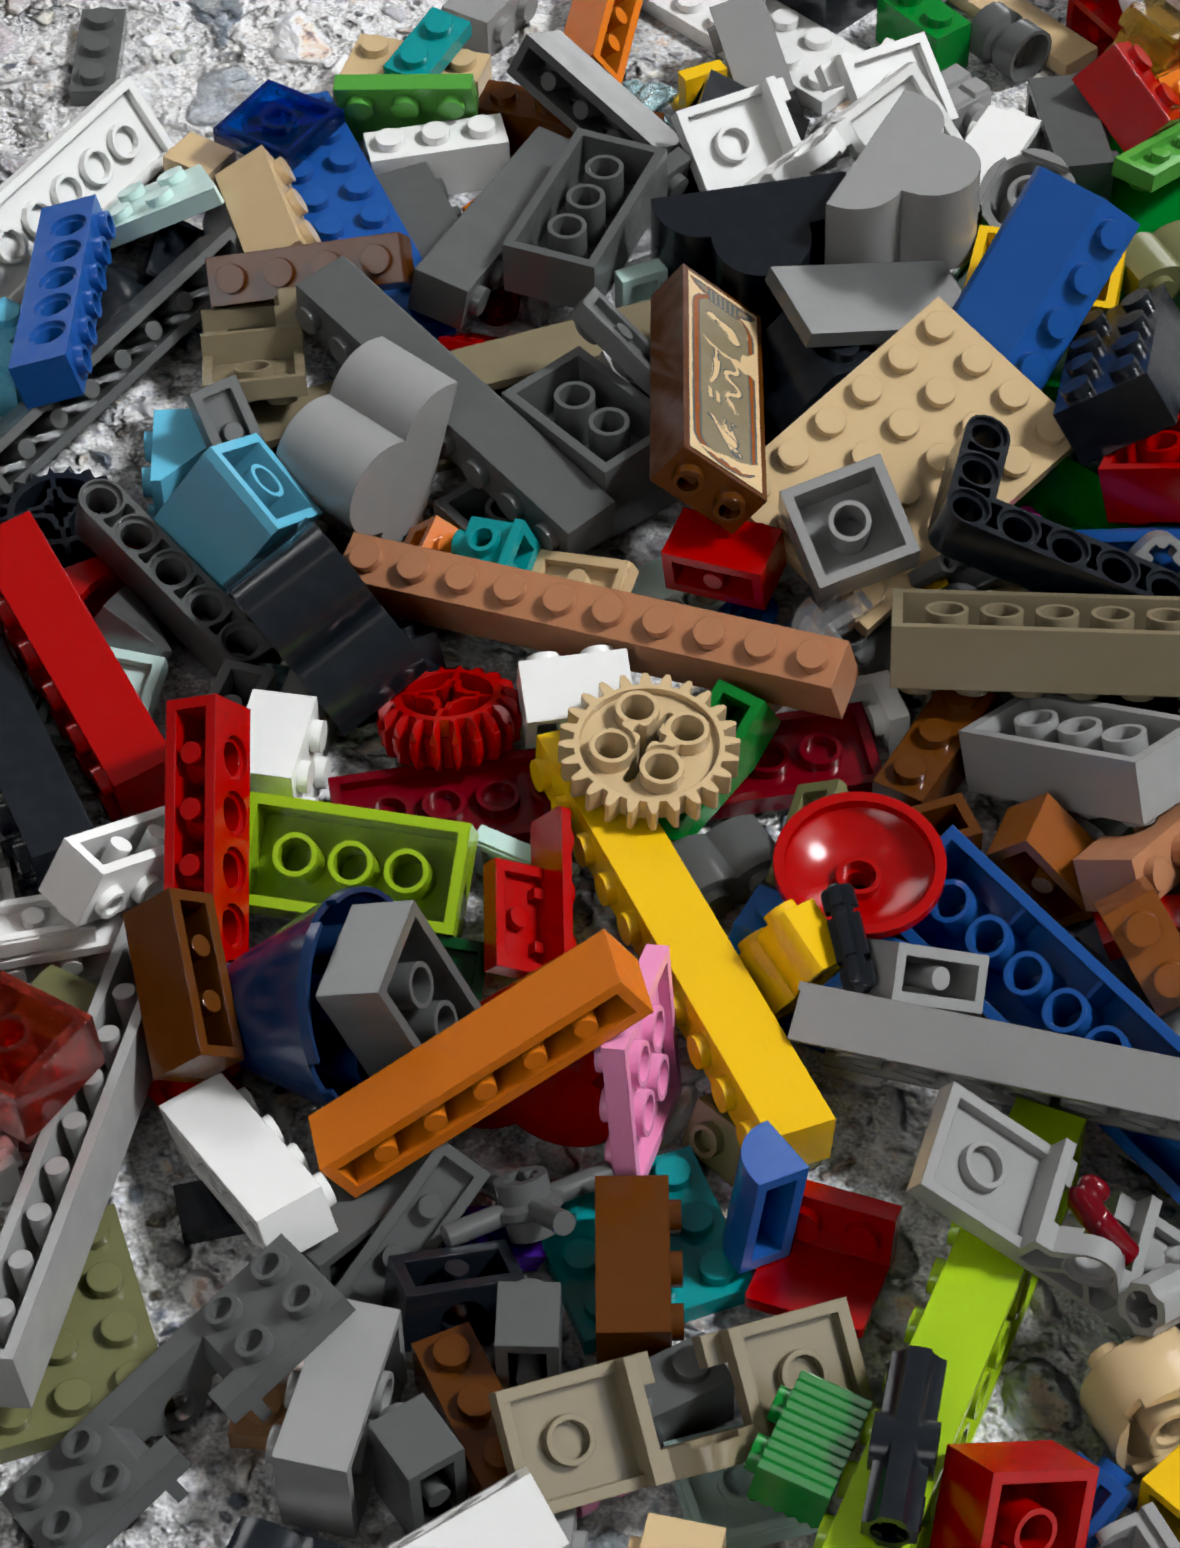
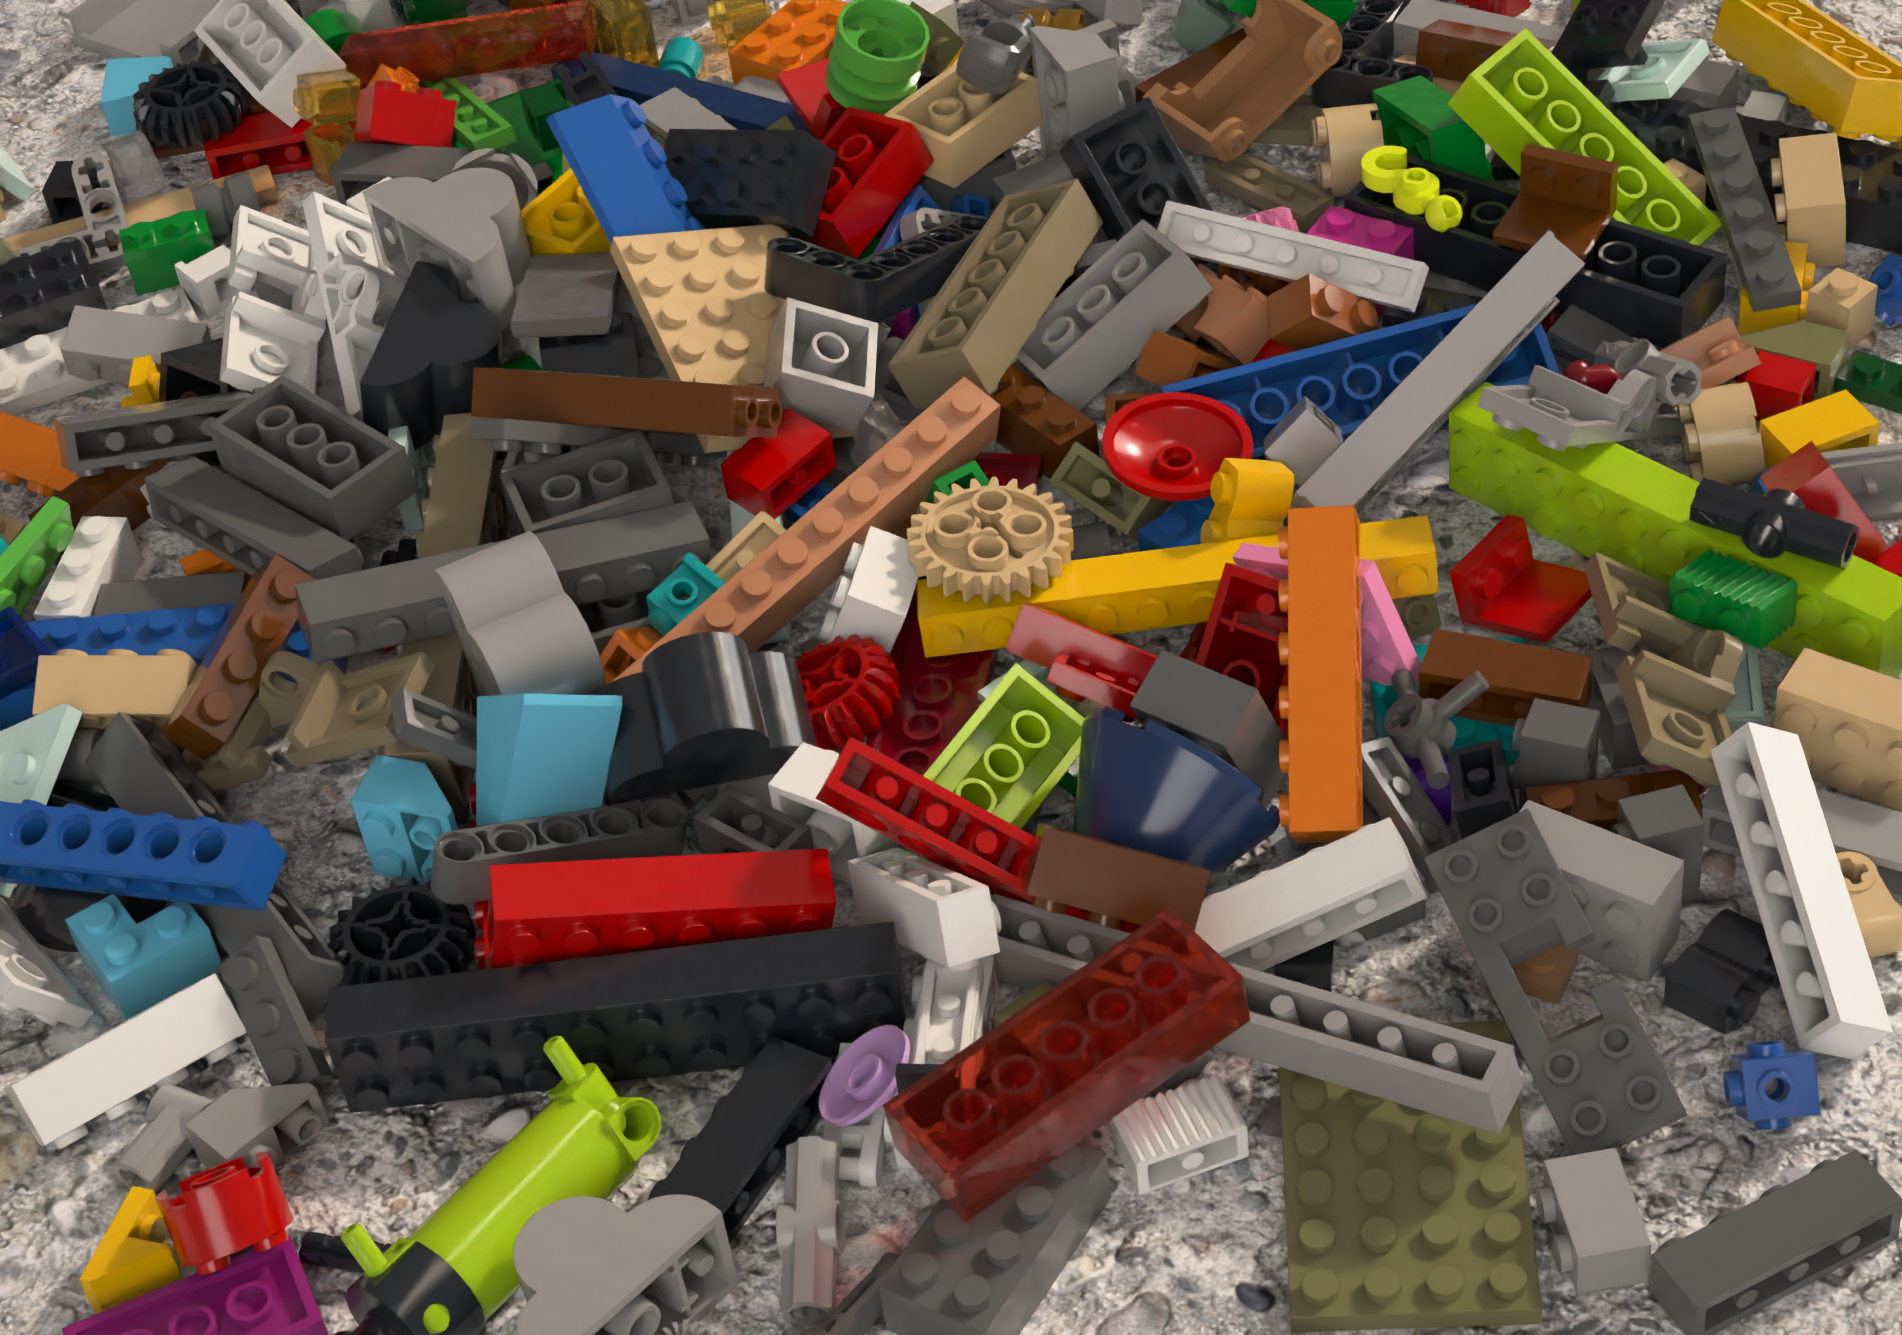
camera: 65 degrees left, 5 degrees down
(763, 1200) = (1475, 582): blue brick -> none
(848, 938) = (1273, 448): black axle -> none

